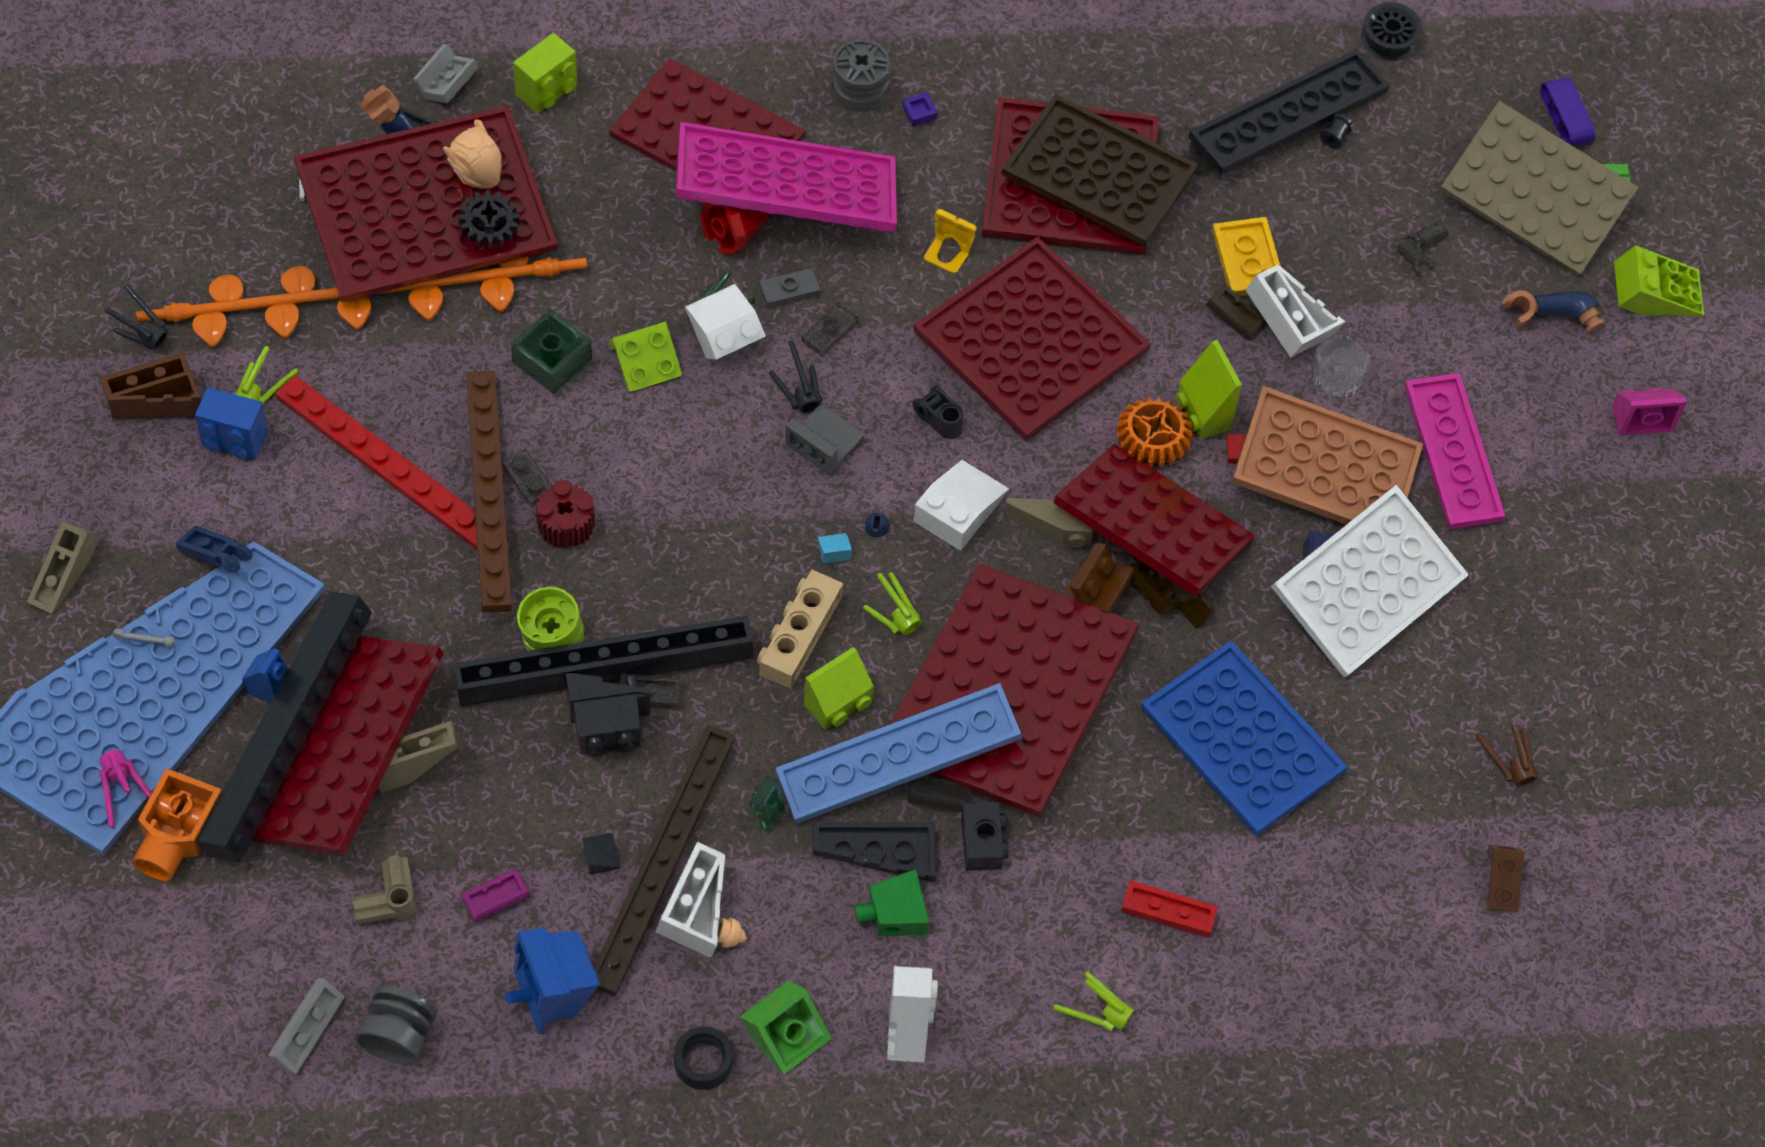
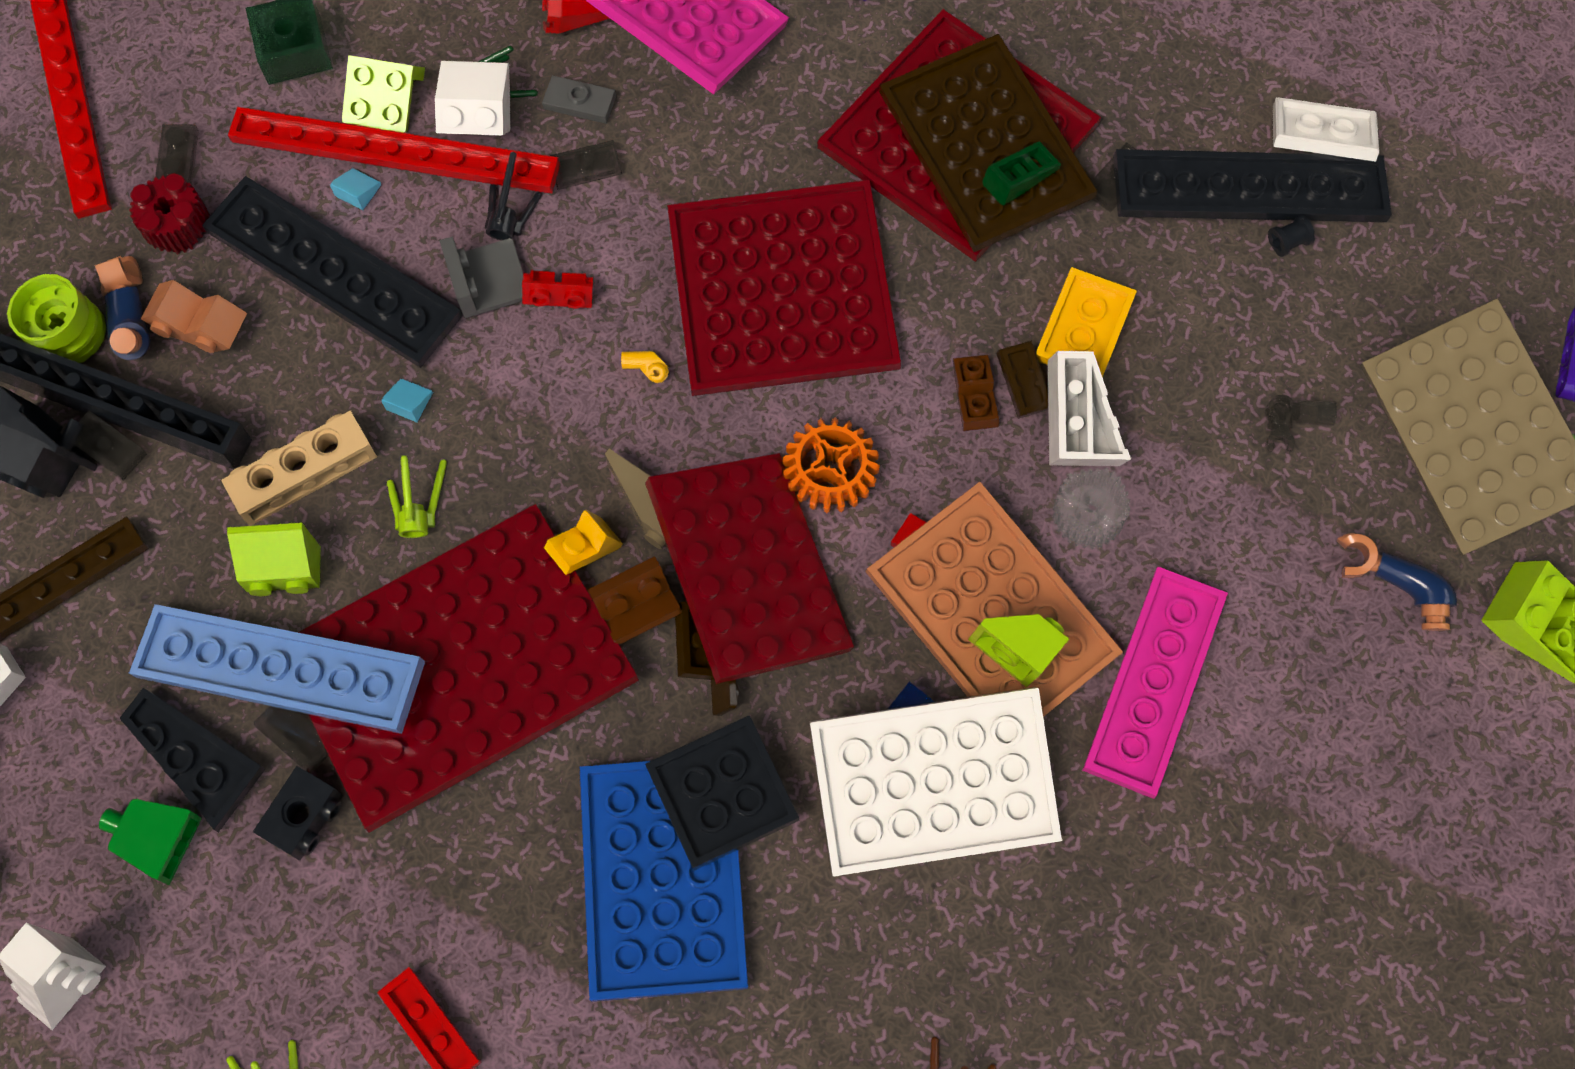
camera: 40 degrees right, 10 degrees up
(488, 492) = (117, 151): reddish brown plate -> none
(594, 606) = (126, 330): none -> piece
(637, 577) = (182, 314): none -> nougat brick
(679, 430) = (355, 188): none -> medium azure slope
(686, 389) = (392, 149): none -> red plate
(711, 492) = (333, 271): none -> black plate
(768, 803) = (105, 641): clear green plate -> none
(883, 525) = (473, 402): dark blue hinge -> none
(892, 416) = (542, 290): none -> red hinge
(937, 410) = (623, 311): black piece -> none
(950, 227) = (779, 123): yellow piece -> none
(958, 504) = (568, 424): white slope -> none
(981, 435) = (647, 362): none -> yellow arm
(1035, 565) = (583, 543): none -> yellow slope
(1140, 178) = (1002, 183): none -> dark green slope
(1204, 329) = (975, 392): none -> reddish brown slope
(1210, 392) = (910, 457): lime slope -> none
(1246, 661) = (722, 792): none -> black plate
(1308, 50) = (1325, 129): none -> white tile
(1366, 466) = (1020, 643): none -> lime slope
(1391, 31) = (1451, 141): black wheel -> none
(1648, 411) = (1425, 767): dark pink slope -> none

